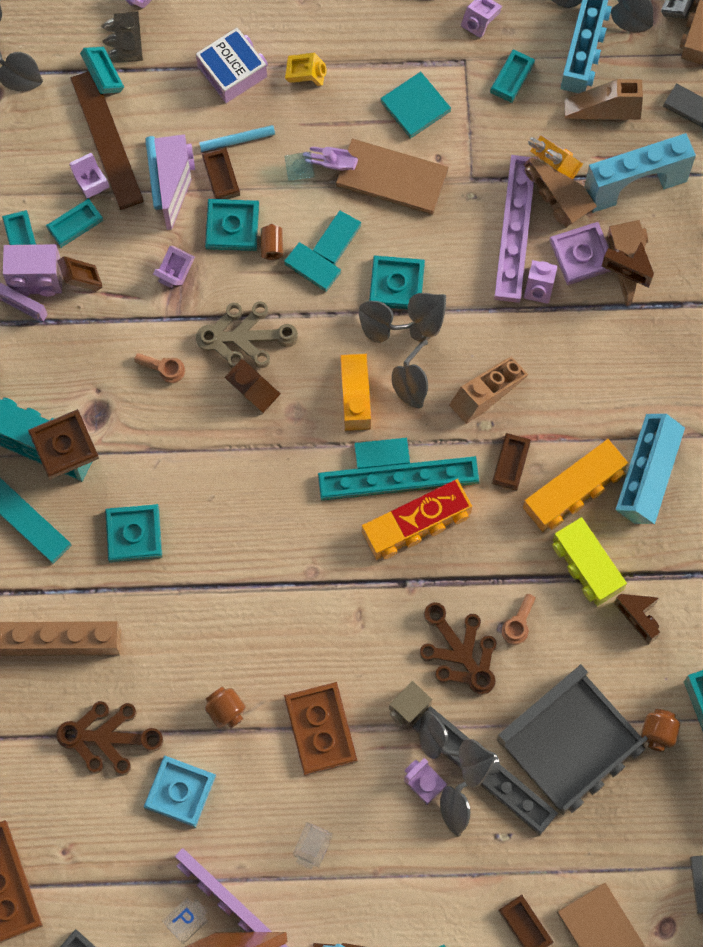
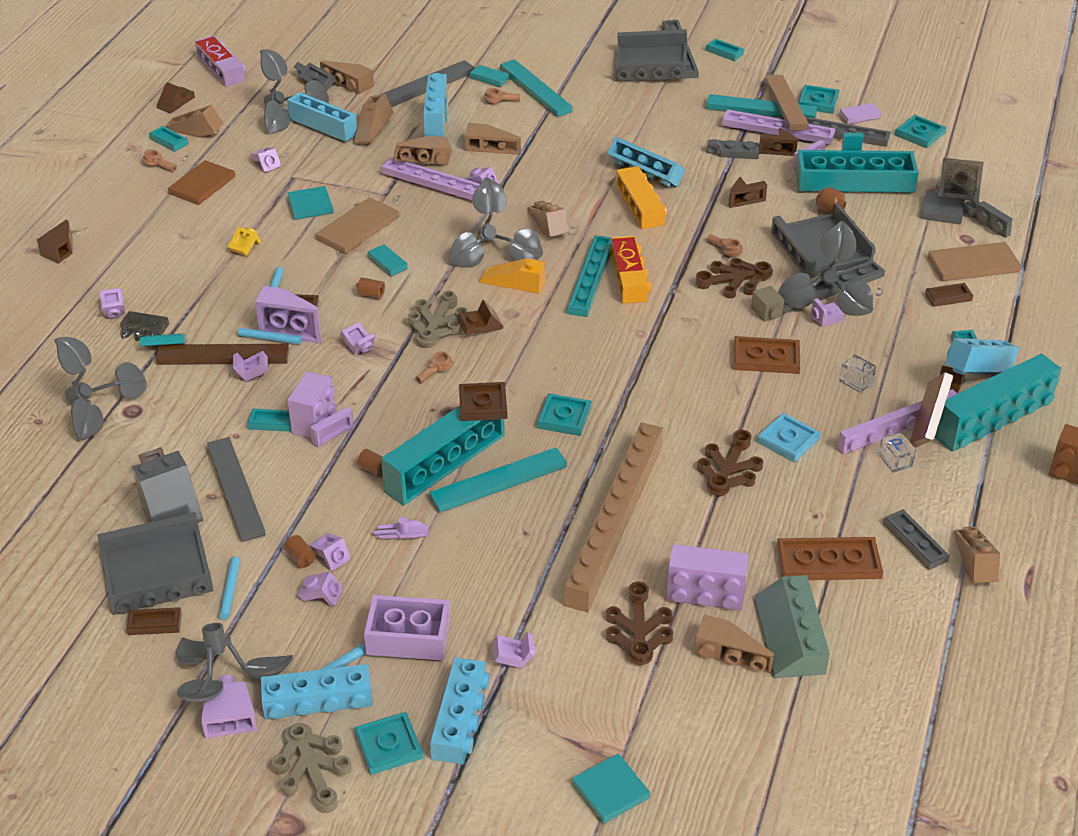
camera: 70 degrees left, 30 degrees down
(74, 223) = (280, 386): teal tile -> none
(80, 274) = (338, 379): reddish brown tile -> none
(225, 707) = (733, 391): dark orange head -> none
(232, 64) = (213, 273): piece -> none
(232, 225) = (342, 307): teal tile -> none
(299, 166) = (319, 260): clear light blue plate -> none
(312, 267) = (402, 276): teal tile -> none
(334, 158) = (325, 243): lavender piece -> none
(382, 453) = (568, 277): teal tile -> none
(396, 280) = (437, 241): teal tile -> none
(511, 461) = (606, 223): reddish brown tile -> none
(512, 76) = (320, 158): teal tile -> none
(556, 157) = (389, 144): light orange piece -> none
(580, 252) = (469, 158): lavender tile -> none
(588, 562) = (698, 204): neon yellow brick -> none
(636, 268) = (501, 126): reddish brown slope -> none

